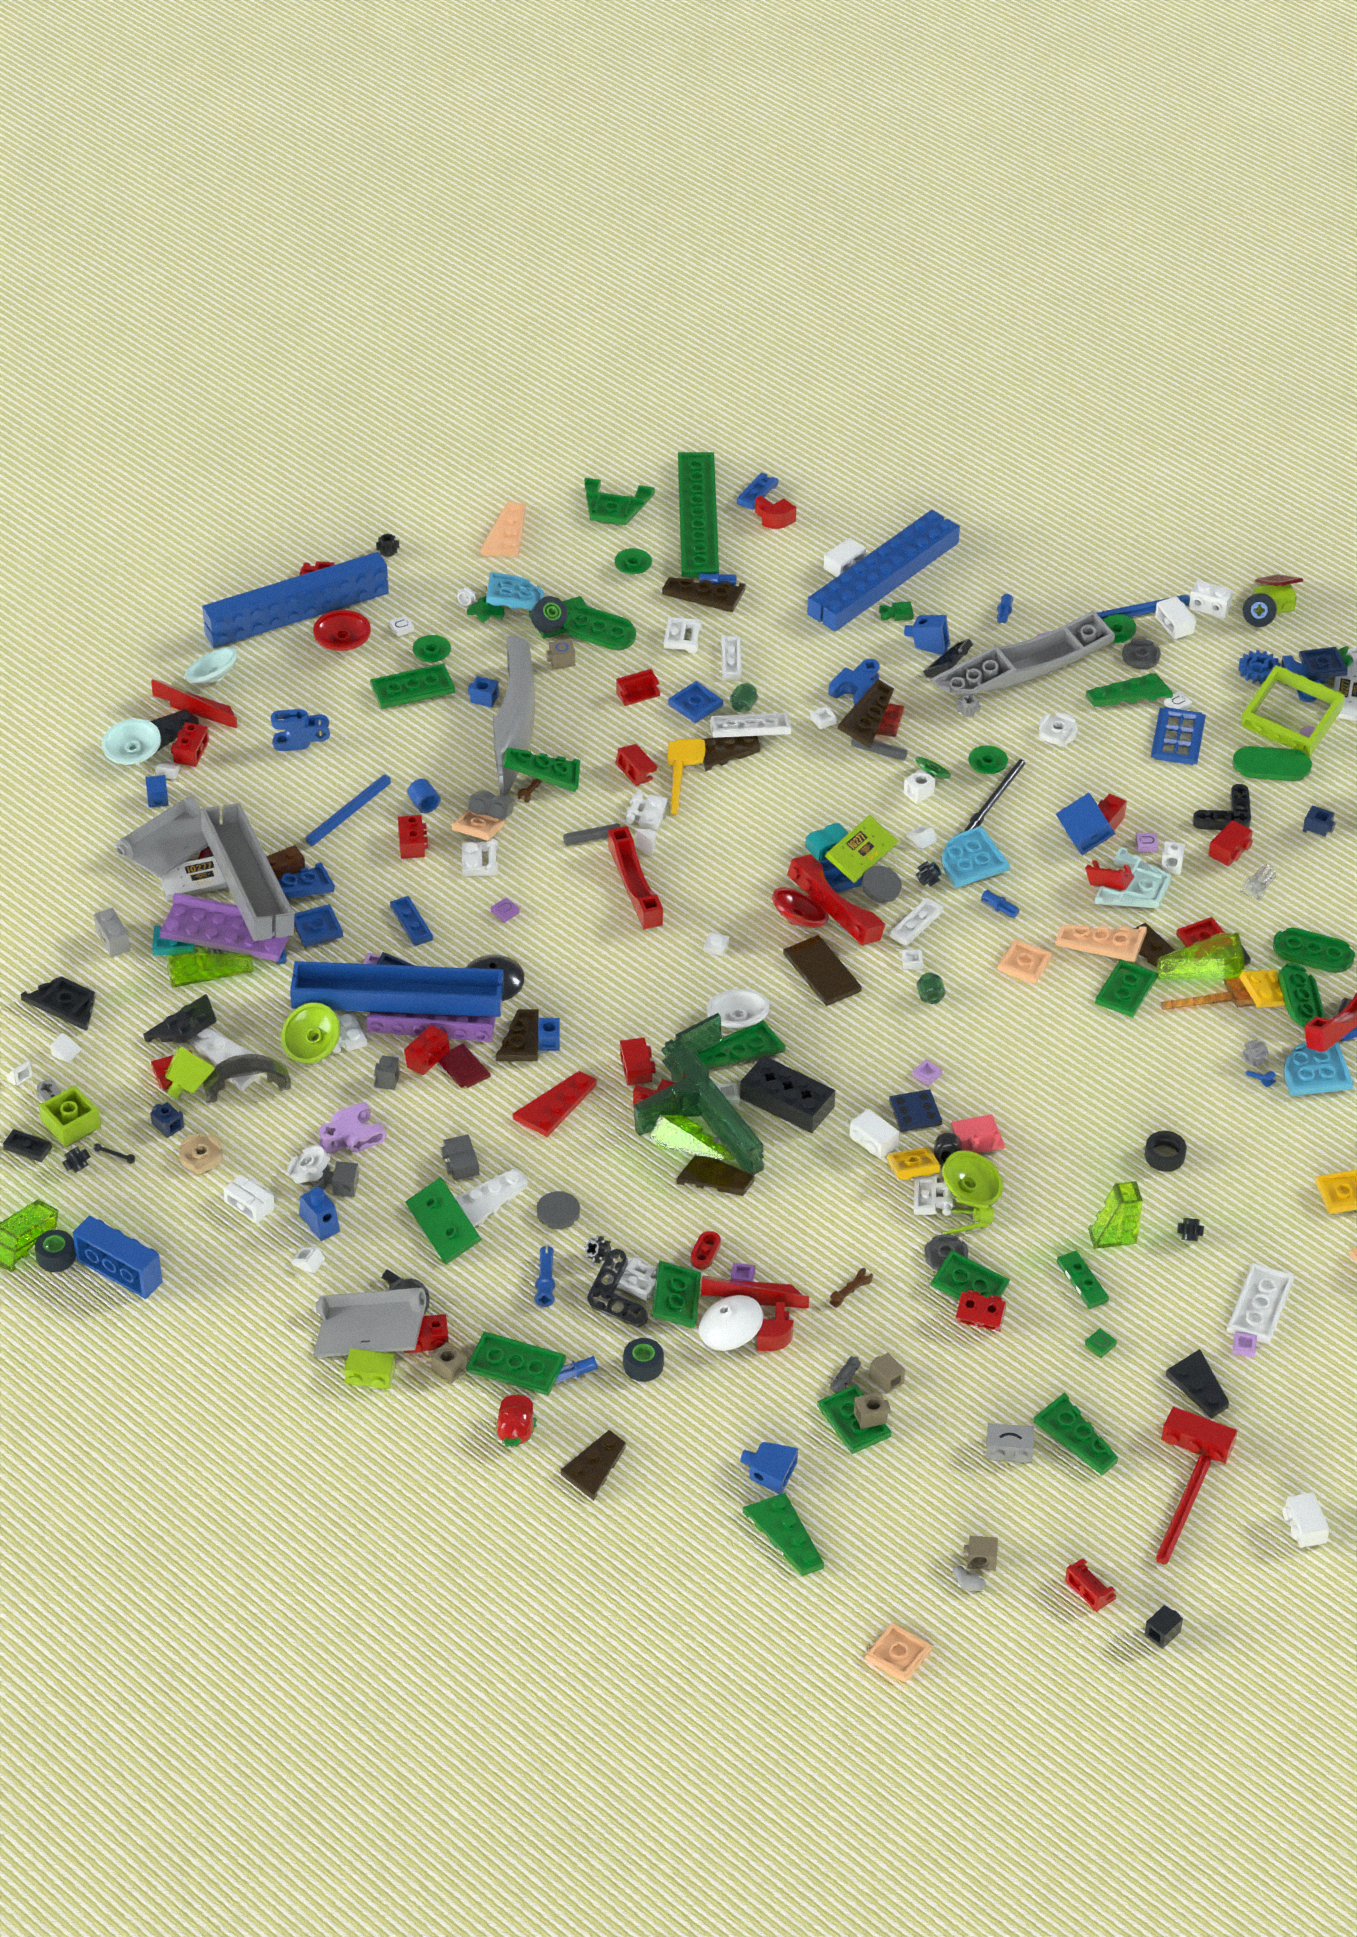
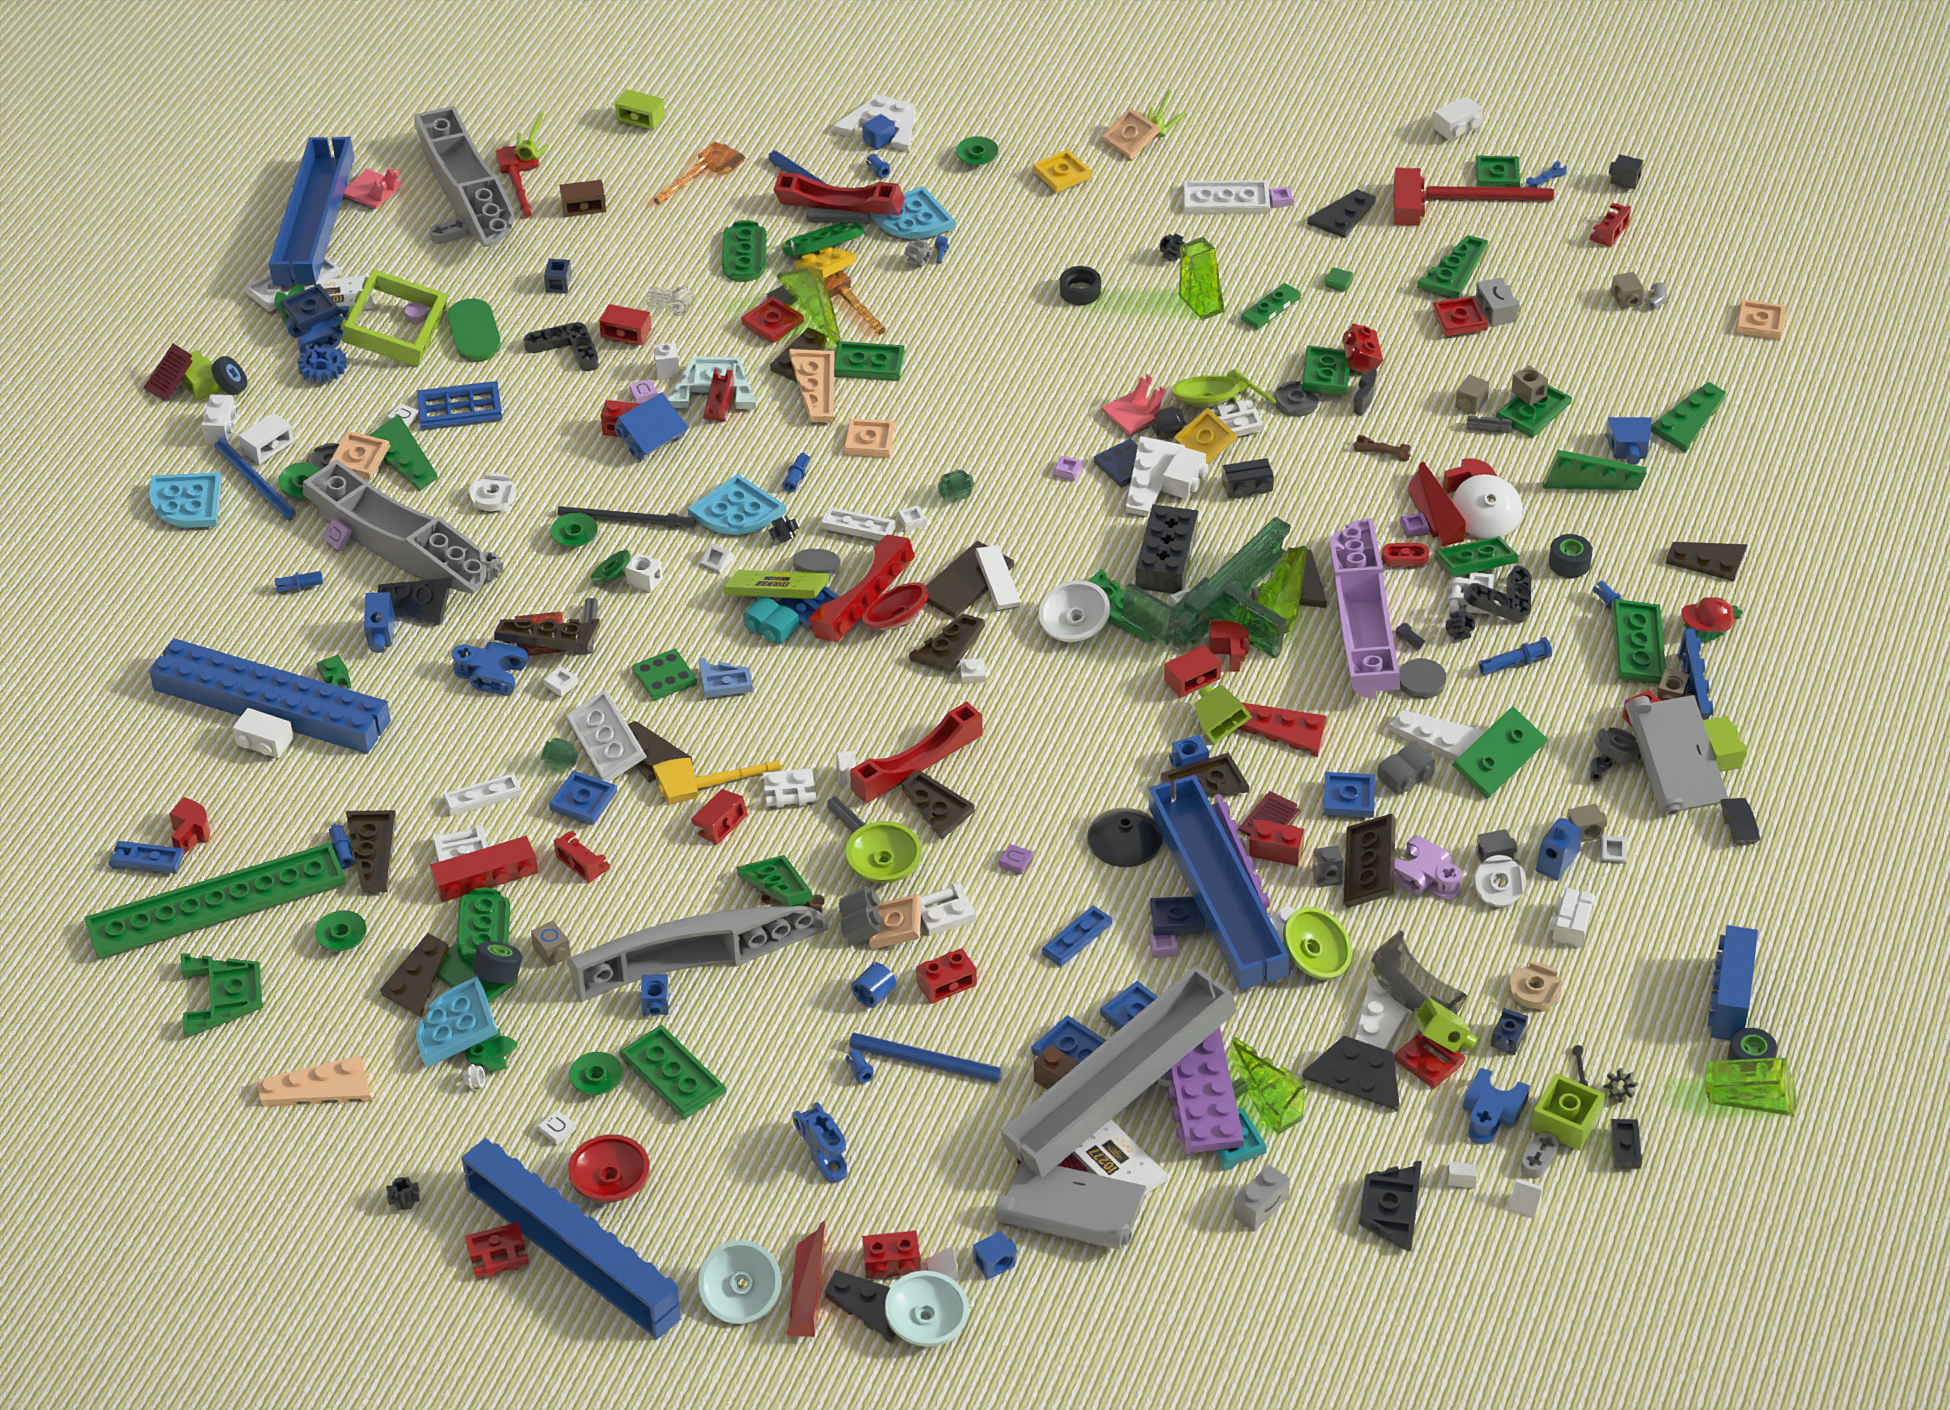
camera: 110 degrees left, 0 degrees up
(108, 1082) = (1492, 1106): none -> blue piece
(284, 1344) = (1741, 820): none -> black slope
(338, 1244) = (1589, 820): none -> dark tan brick
(359, 774) = (862, 1071): none -> blue pin
(377, 1097) = (1369, 860): none -> dark brown tile
(451, 1377) = (1695, 667): none -> blue wing
(455, 1114) = (1349, 794): none -> blue plate
(542, 830) = (883, 843): none -> lime dish
(571, 586) = (415, 976): none -> dark brown wing
(581, 883) = (937, 803): none -> dark brown wing
(581, 1060) = (1219, 712): none -> lime torso
(610, 1215) = (1406, 634): none -> black arm
(644, 1188) = (1364, 609): none -> lavender slope
(652, 638) = (484, 868): none -> red brick
(745, 1386) = (1587, 472): none -> green wing
(749, 936) = (951, 645): none -> dark brown wing
(780, 802) = (724, 679): none -> medium blue wing
(804, 775) = (664, 674): none -> green tile
(807, 981) = (997, 577): none -> white tile
(851, 1177) = (1247, 478): none -> black brick
(902, 1117) = (1147, 477): none -> white wing
(928, 1301) = (1364, 396): none -> black slope
(1003, 1407) = (1460, 316): none -> red plate
(1127, 570) = (186, 498): none -> medium azure plate
(1131, 661) = (361, 453): none -> light nougat tile
(1183, 1549) = (1554, 171): none -> blue piece
(1217, 1531) = (1497, 171): none -> green tile

